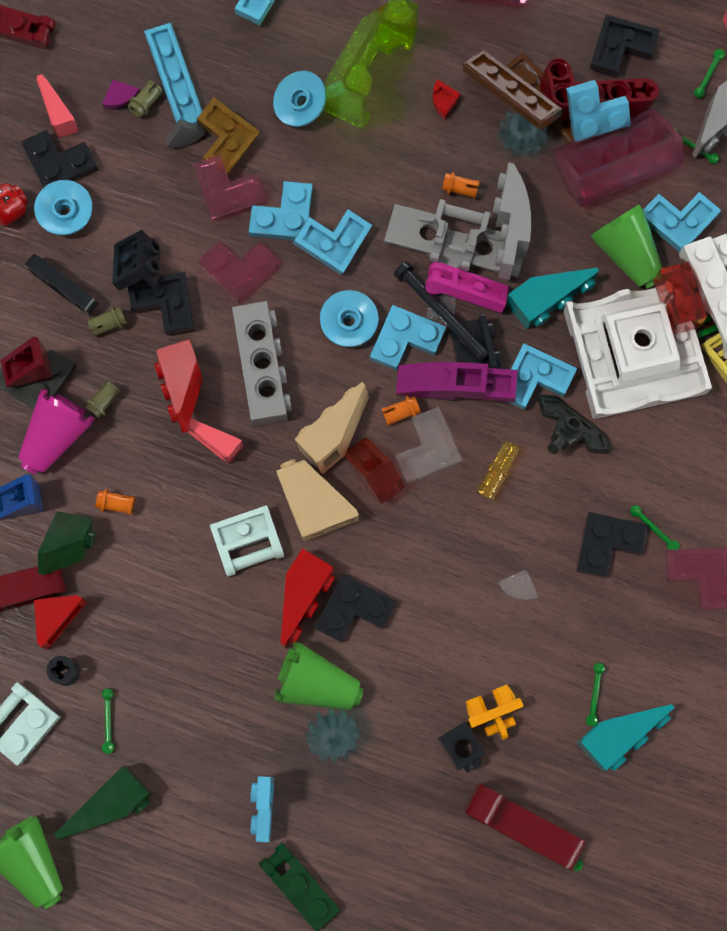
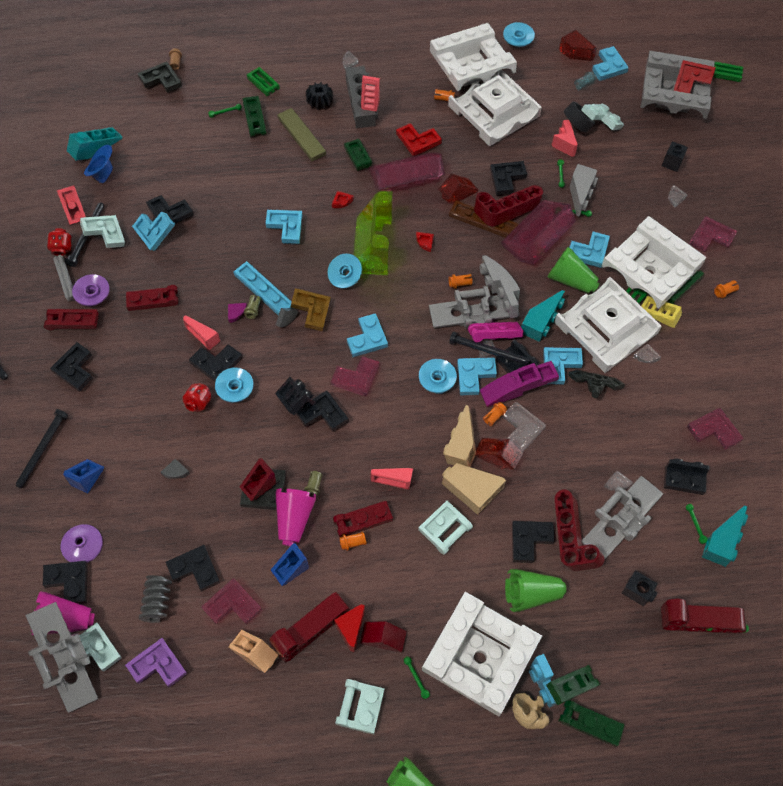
camera: 25 degrees left, 15 degrees down
(61, 284) = (254, 428): black beam -> none
(65, 542) = (337, 575): dark green slope -> none
(69, 677) = (374, 650): black bush -> none
(92, 649) = (383, 636): none -> dark red slope
(107, 321) = (296, 435): olive pin -> none
(113, 801) = (449, 724): dark green slope -> none
(145, 478) = (363, 519): none -> dark red plate
(182, 378) = (356, 448): slope -> none
(197, 696) = (454, 652): none -> white piece
(223, 834) = (528, 711): none -> tan hair
(224, 195) = (326, 339): clear pink plate -> none
(248, 320) = (412, 447): light grey brick -> none
(296, 830) = (572, 685): none -> dark green plate
(303, 585) = (493, 539): red slope -> none
(332, 735) = (561, 617): clear light blue gear -> none
(336, 247) = (406, 341): medium azure plate -> none
(416, 626) = (570, 529): none -> dark red beam
(498, 470) = (569, 423): clear yellow axle -> none
(501, 646) = (628, 520): none -> light grey piece
(506, 703) = (650, 550): light orange hips -> none
(512, 89) = (462, 219): reddish brown tile -> none
(517, 140) = (479, 239): clear light blue gear -> none
(535, 33) = (457, 188): none -> clear red slope
(595, 118) = (515, 214): medium azure plate -> none
(607, 534) = (648, 435): black plate -> none
(619, 623) = (686, 476): none -> black bracket
(636, 511) = (657, 411): green hinge -> none
(671, 419) = (647, 355): none -> clear tile
(686, 308) = (625, 287): clear red piece -> none

